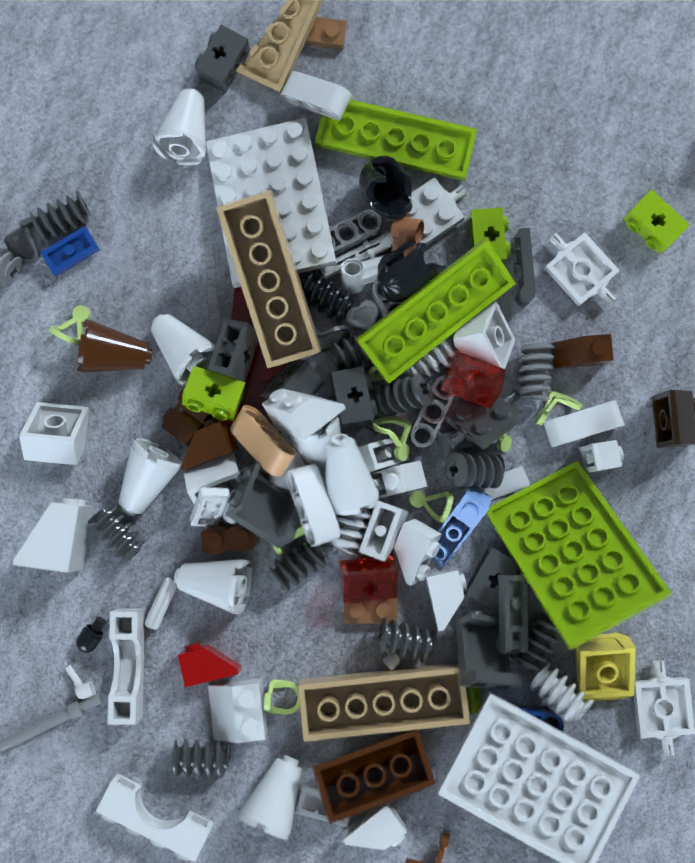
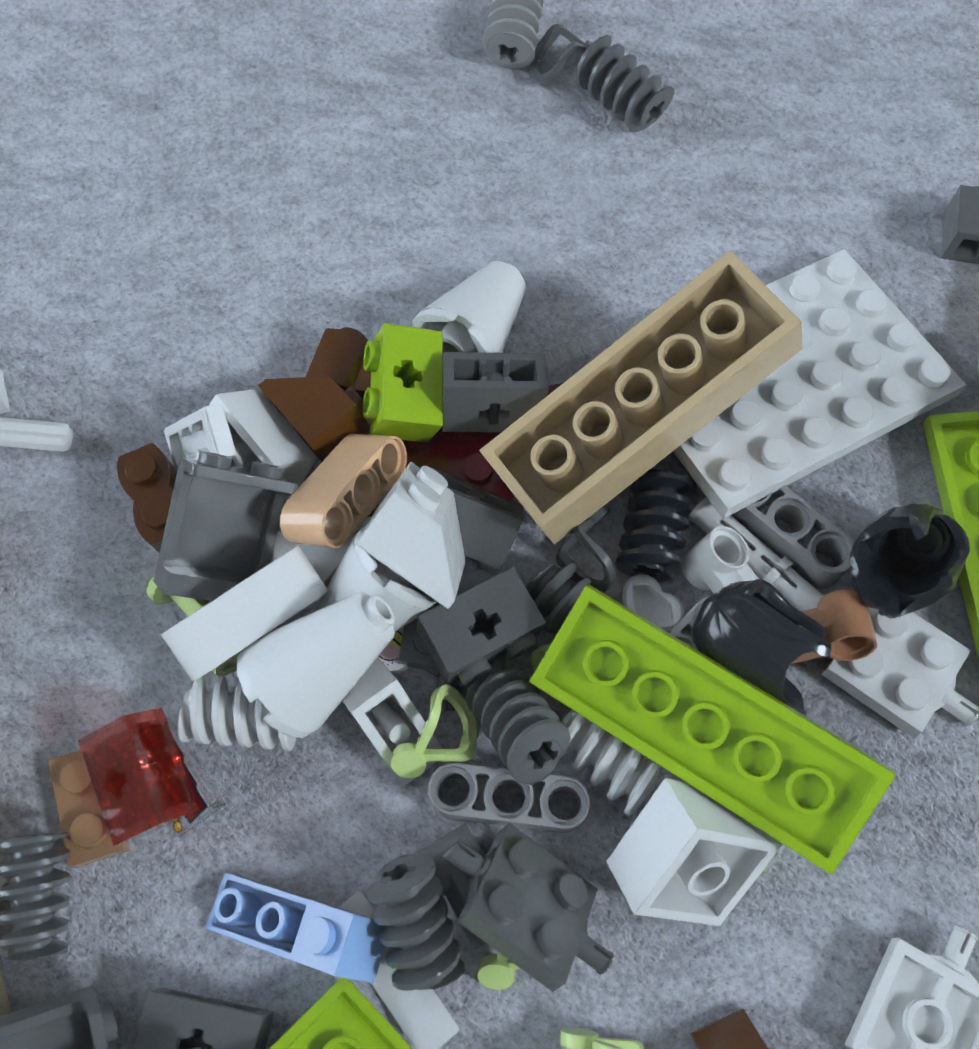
camera: 75 degrees right, 15 degrees down
(55, 433) = (268, 186): white slope -> none
(58, 538) = (90, 236): white slope -> none
(70, 251) = (574, 118): blue plate -> none
(79, 315) = (477, 167): yellowish green piece -> none
(110, 350) = (430, 211): reddish brown cone -> none
(117, 533) = (123, 322): dark grey piece -> none
(146, 475) = (238, 333): white cone -> none
(183, 130) = (847, 204): white cone -> none
(217, 582) = (72, 511): white cone -> none
(298, 564) = (133, 635): dark grey piece -> none
(383, 530) = (241, 773): white slope -> none
(399, 479) = (351, 771): white slope -> none
(415, 548) = (221, 854): white slope -> none
(419, 499) = (329, 830): yellowish green piece -> none
(445, 595) = (145, 947): white slope -> none
(473, 379) = (597, 852): clear red brick -> none
(490, 222) = (935, 793): lime brick -> none
(524, 267) = (872, 892): dark grey plate -> none
(534, 371) = (668, 989): light grey piece -> none

